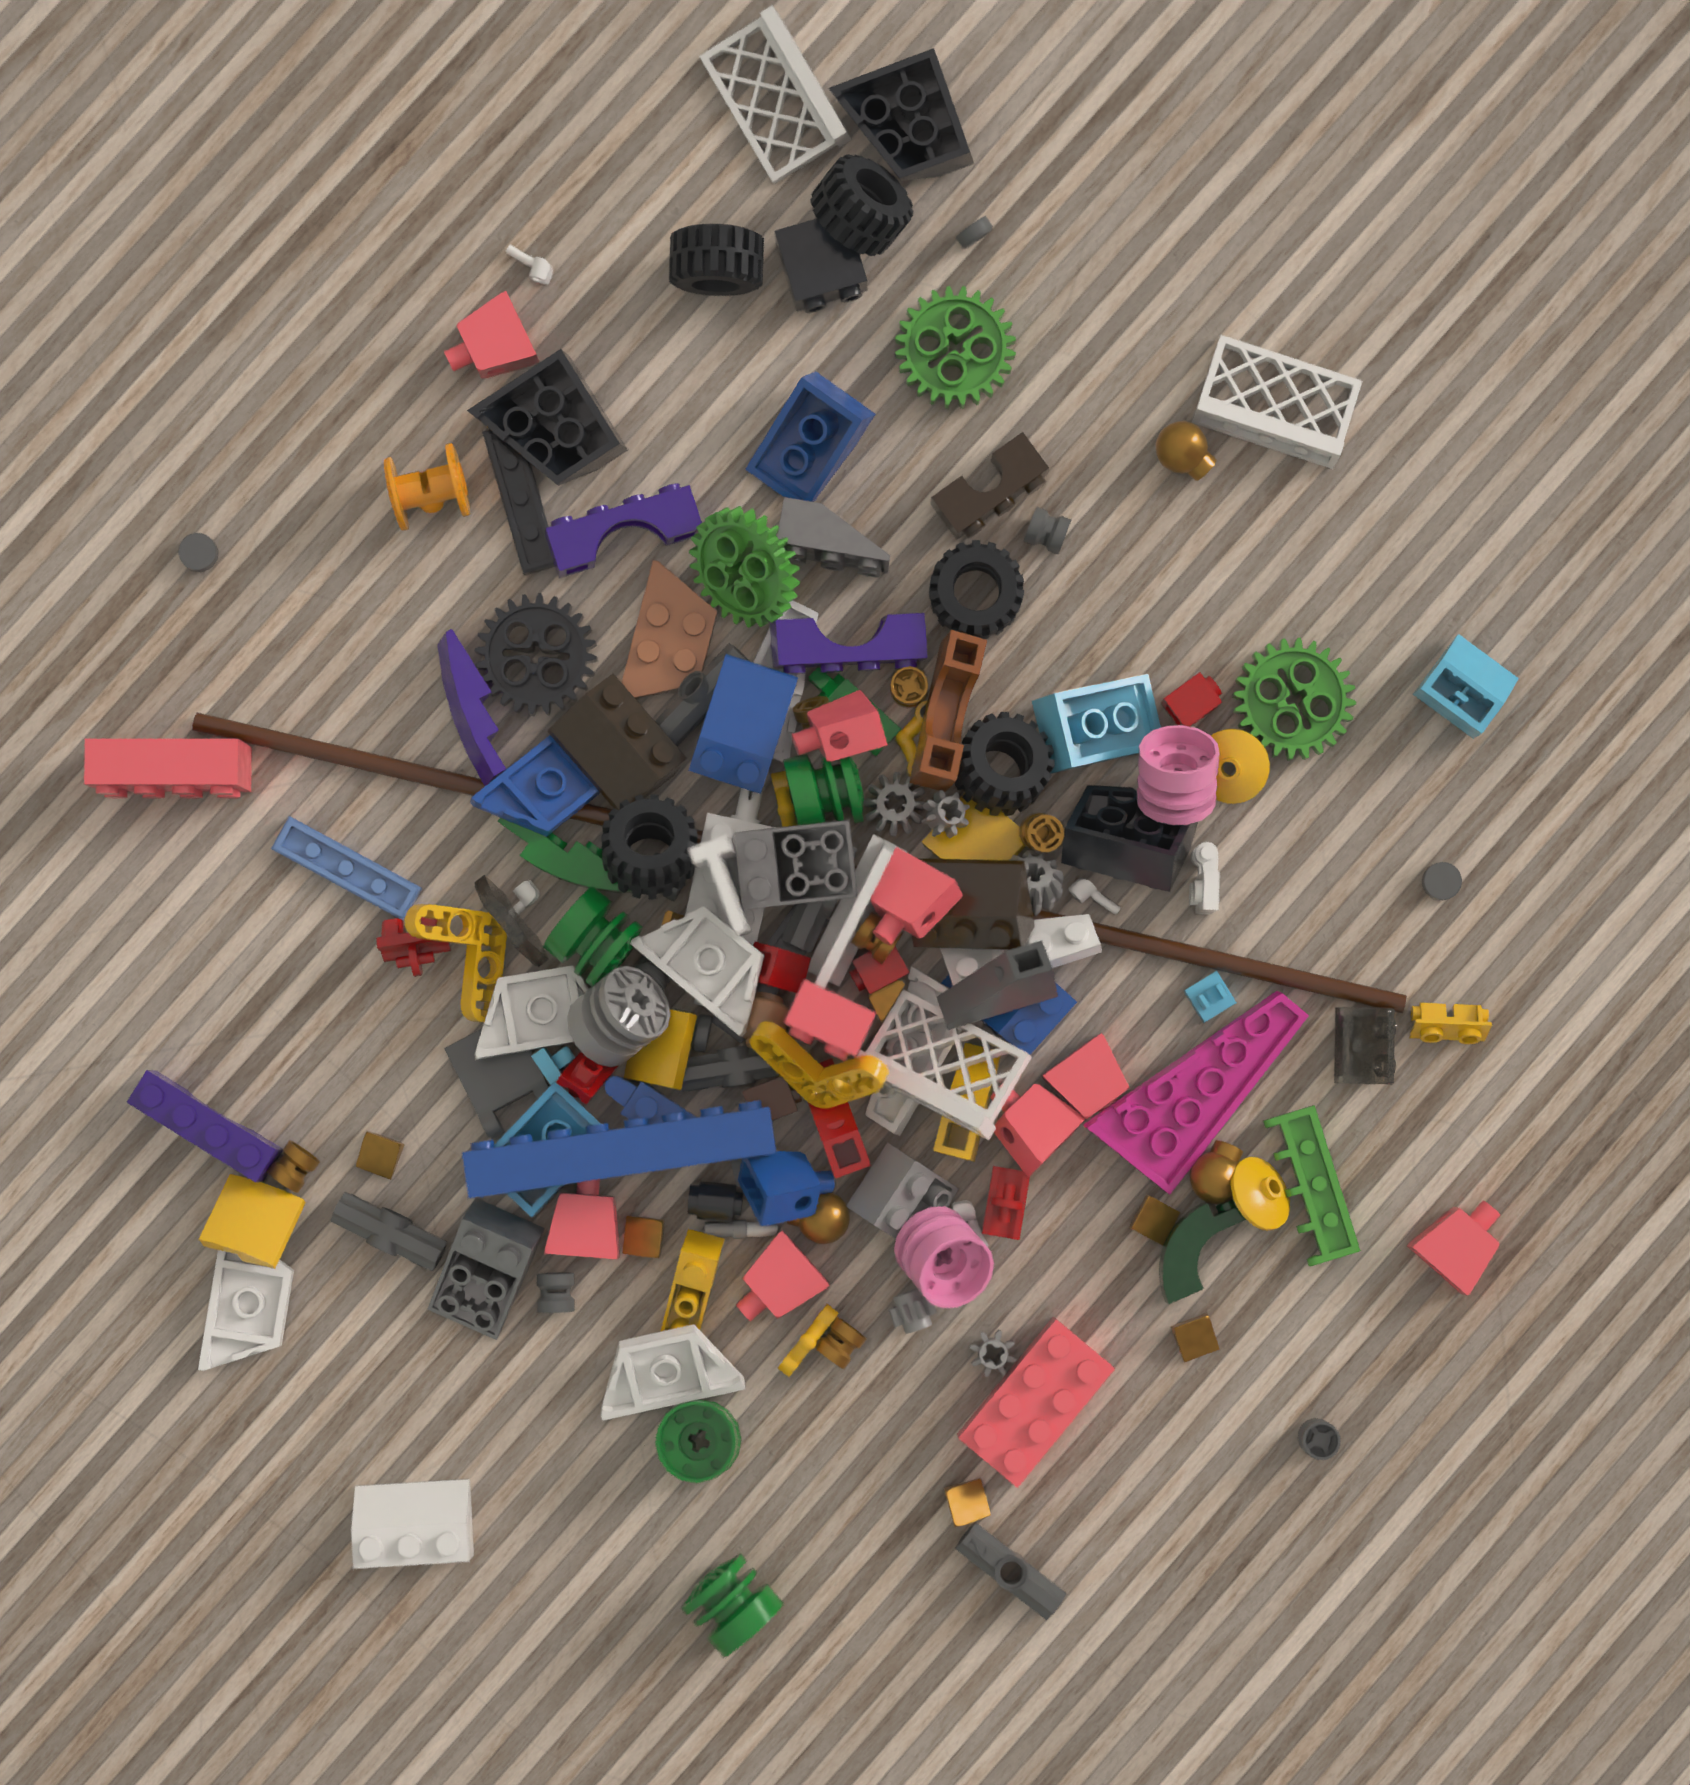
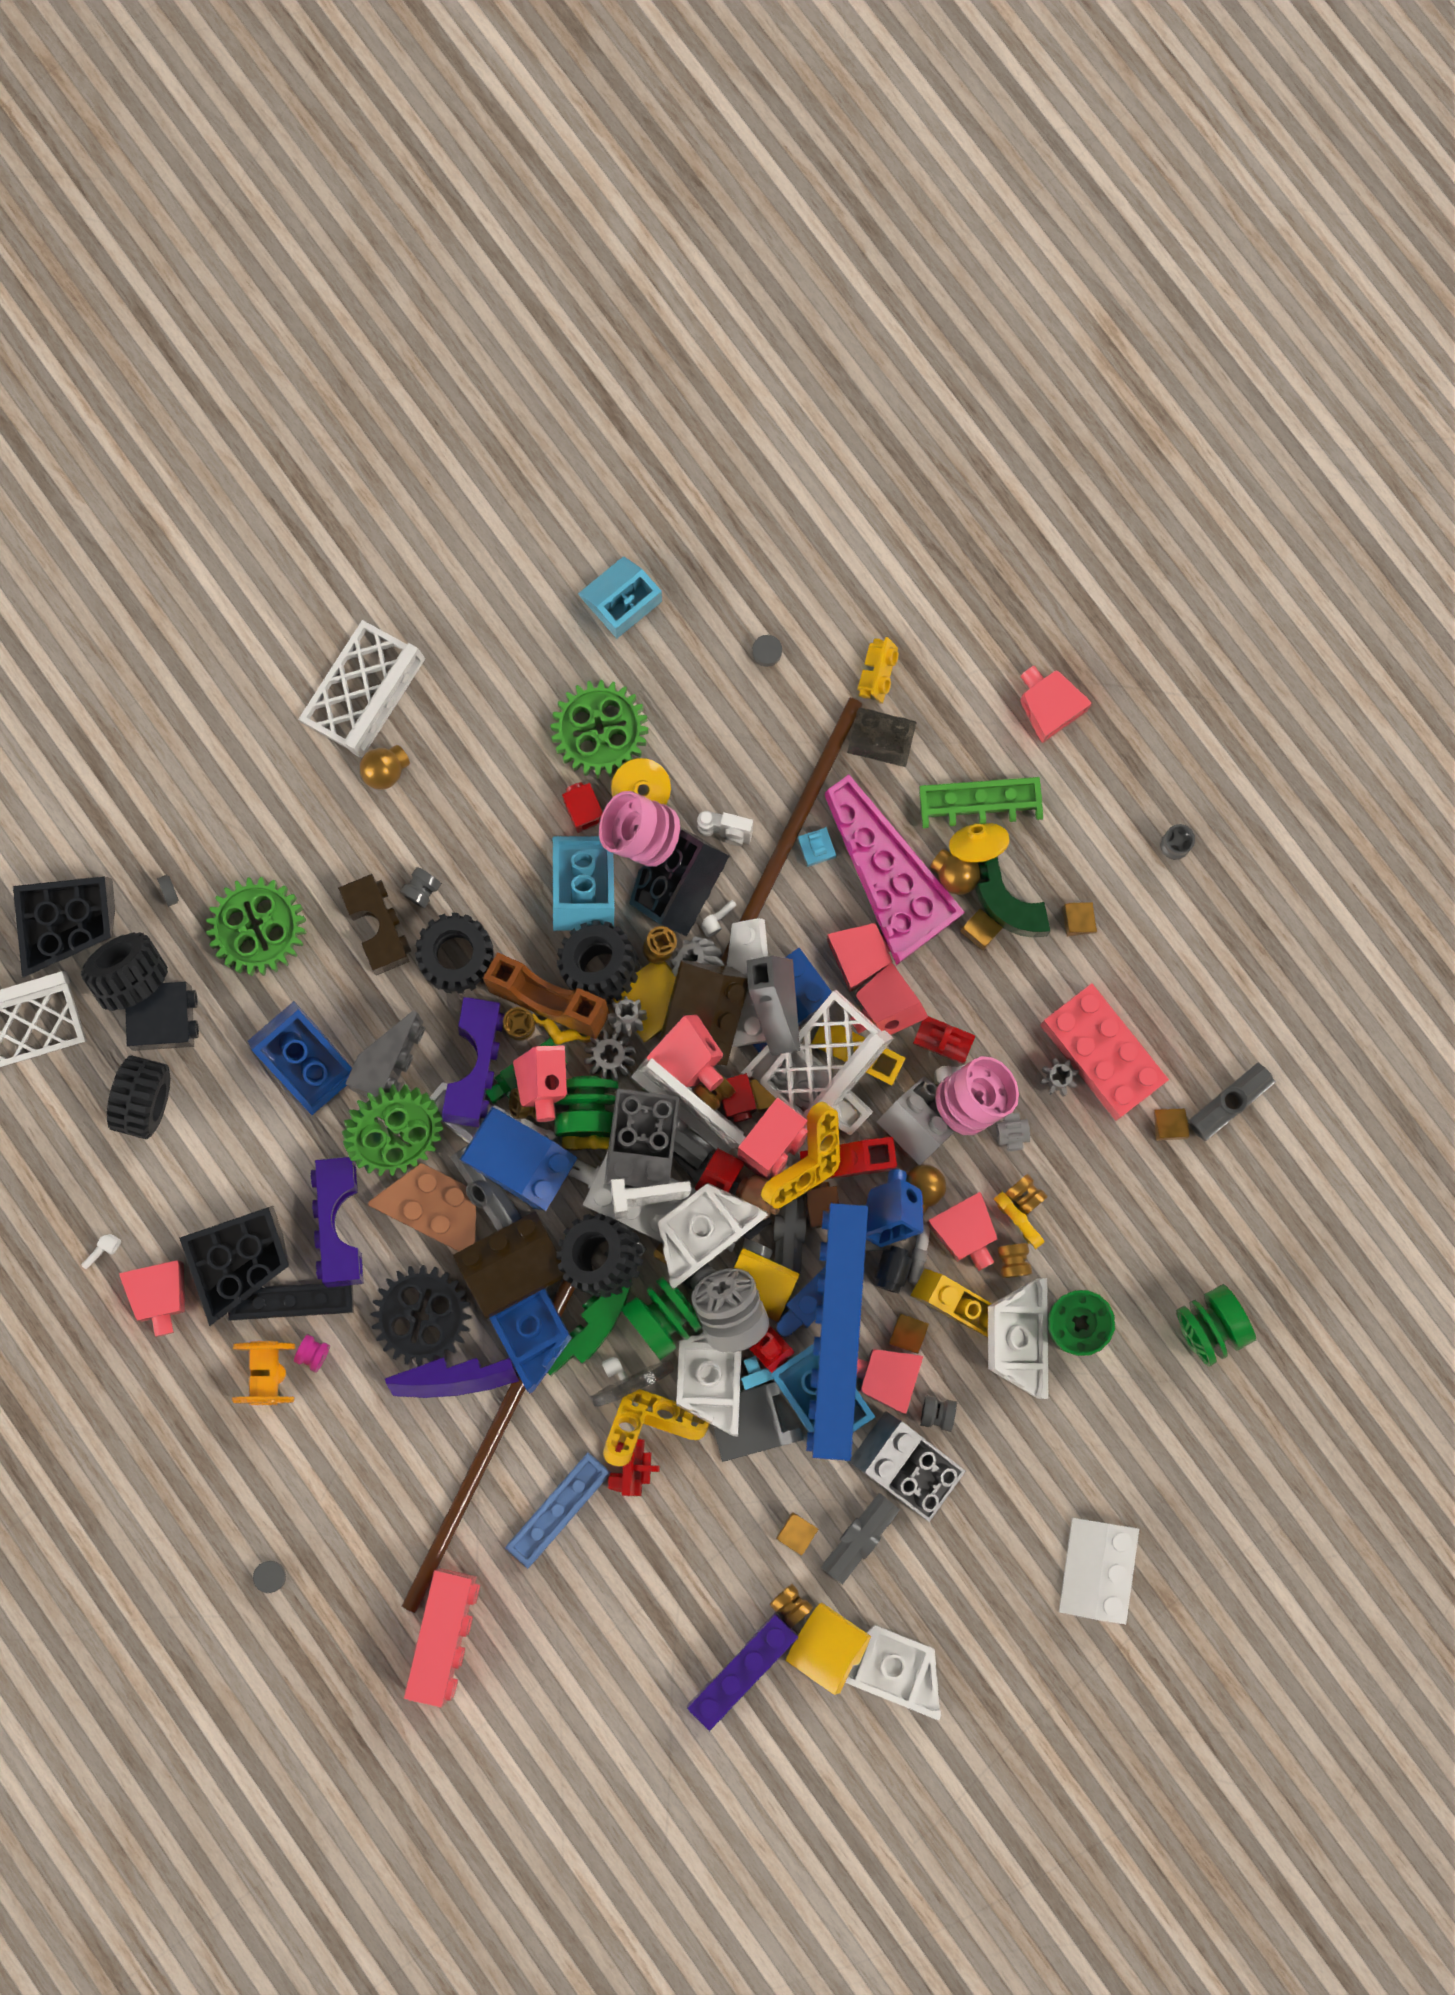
camera: 80 degrees left, 5 degrees down
(464, 537) = (311, 1353): none -> dark pink wheel
(757, 1345) = (1014, 1259): none -> pearl gold wheel

